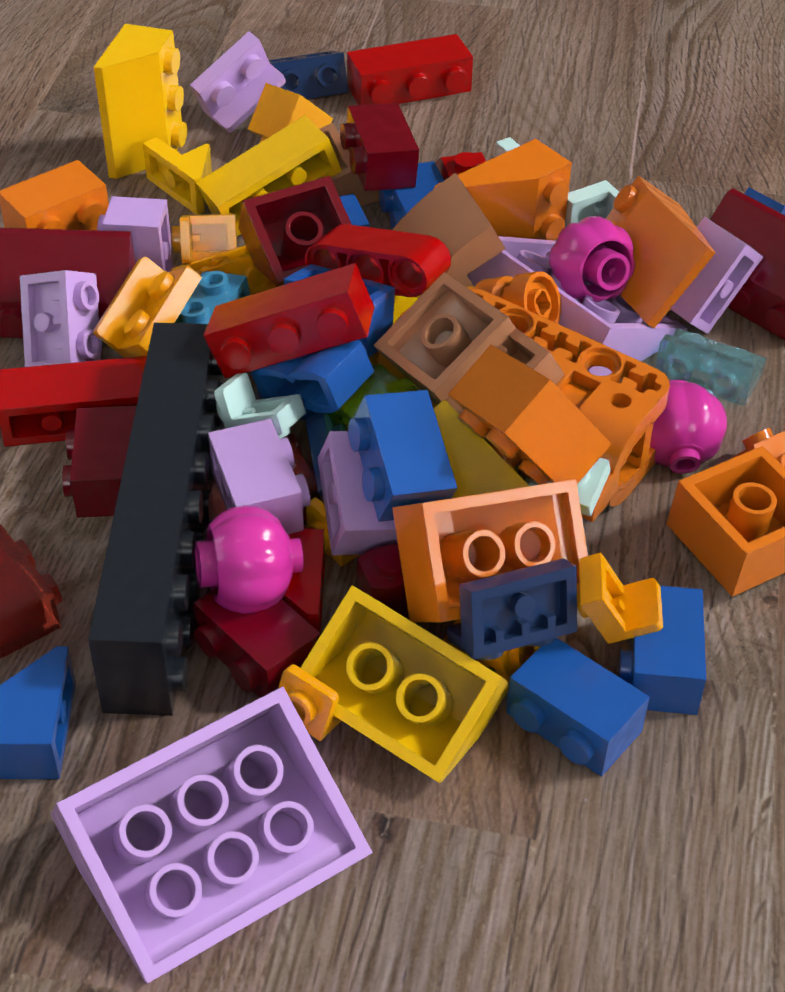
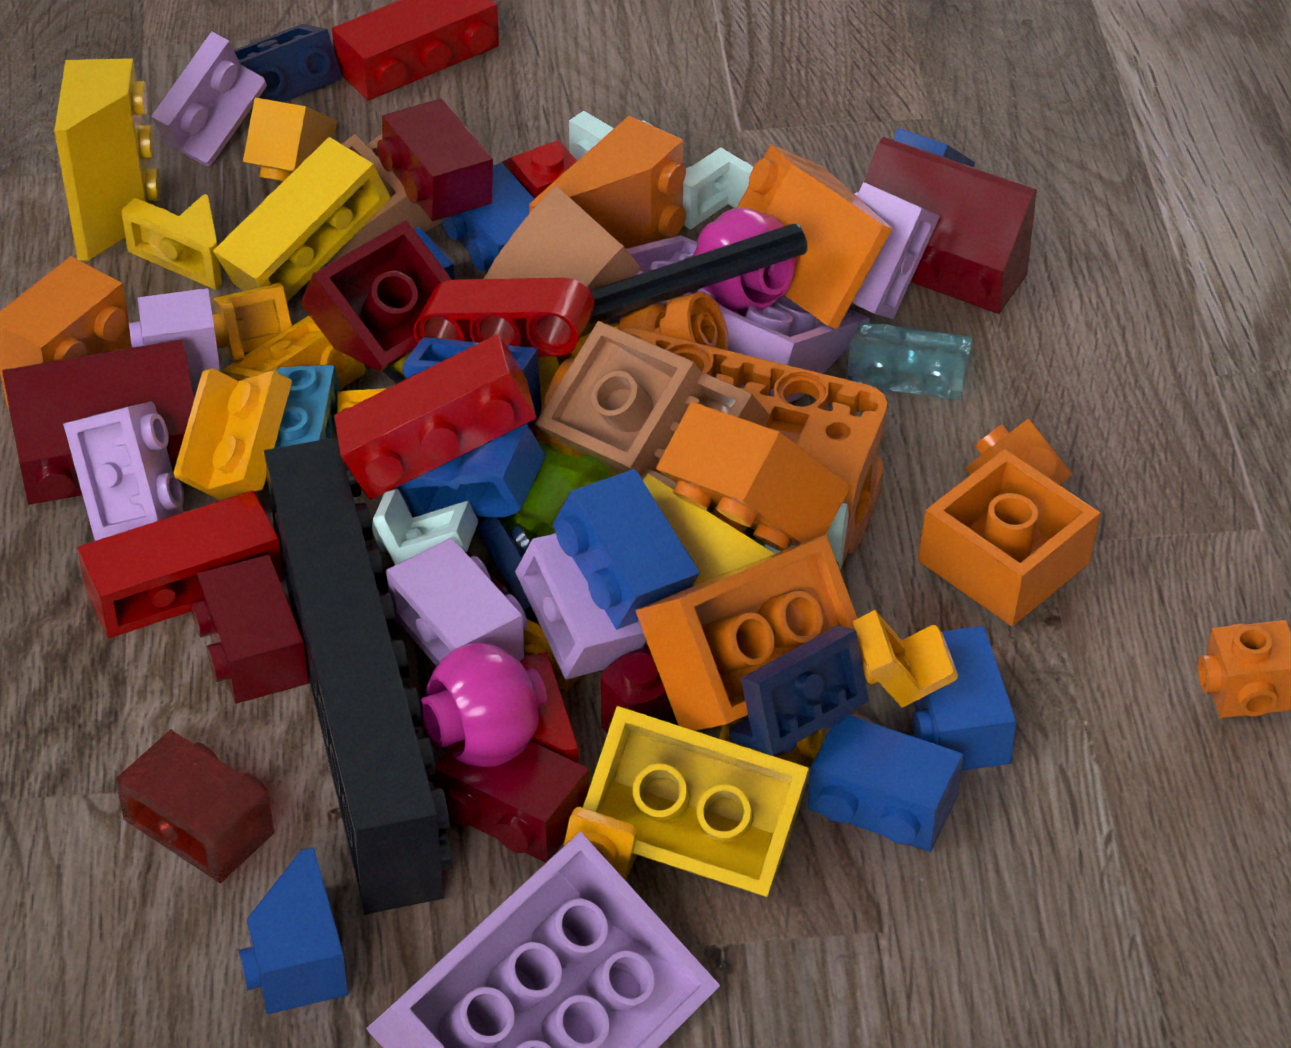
camera: 15 degrees left, 0 degrees up
(545, 257) = (698, 272): none -> black axle
(688, 428) = (914, 443): dark pink plant -> none

